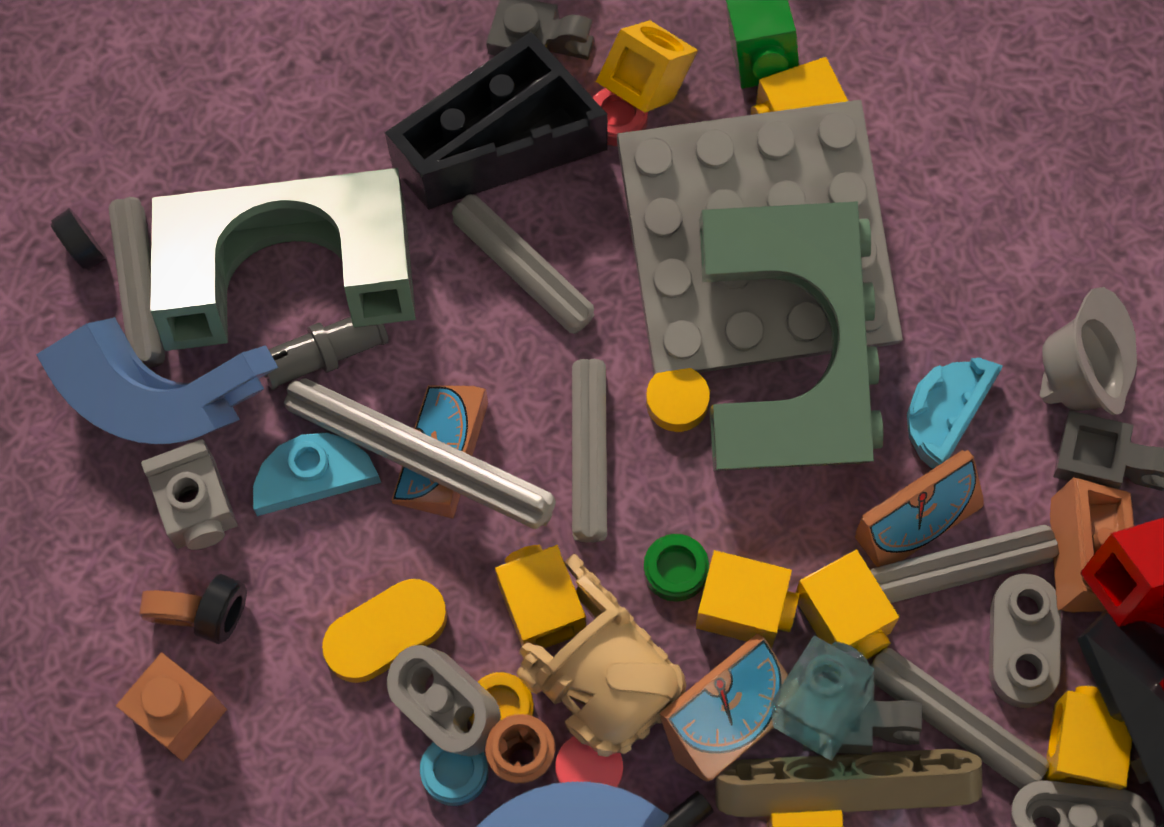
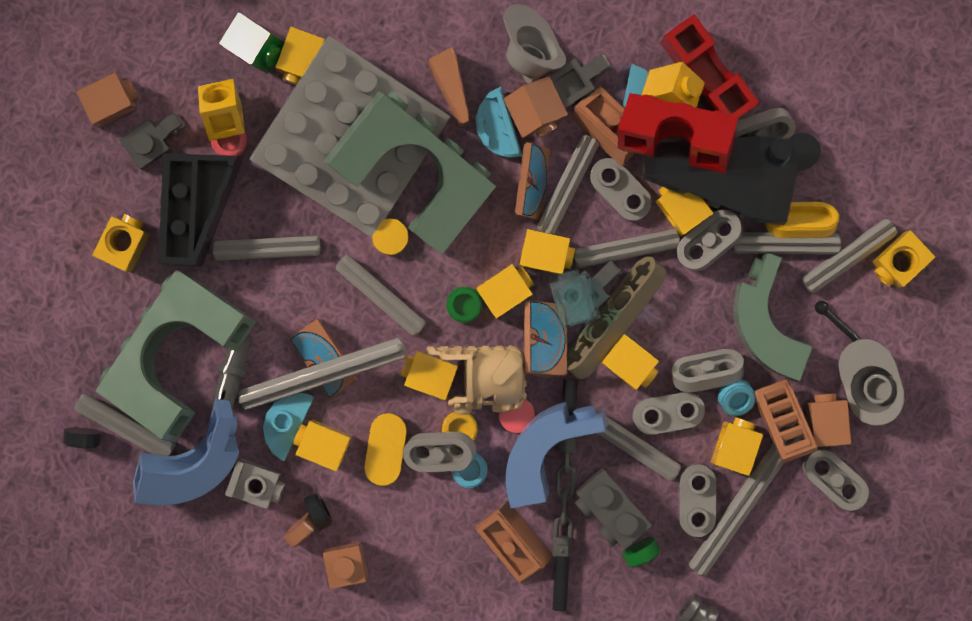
camera: 50 degrees left, 20 degrees up
(319, 538) = (322, 444): none -> yellow brick
(372, 70) = (106, 247): none -> yellow brick
(519, 733) = (487, 451): nougat cone -> none
(952, 289) = (447, 75): none -> nougat slope
(1022, 428) = (536, 108): none -> nougat brick

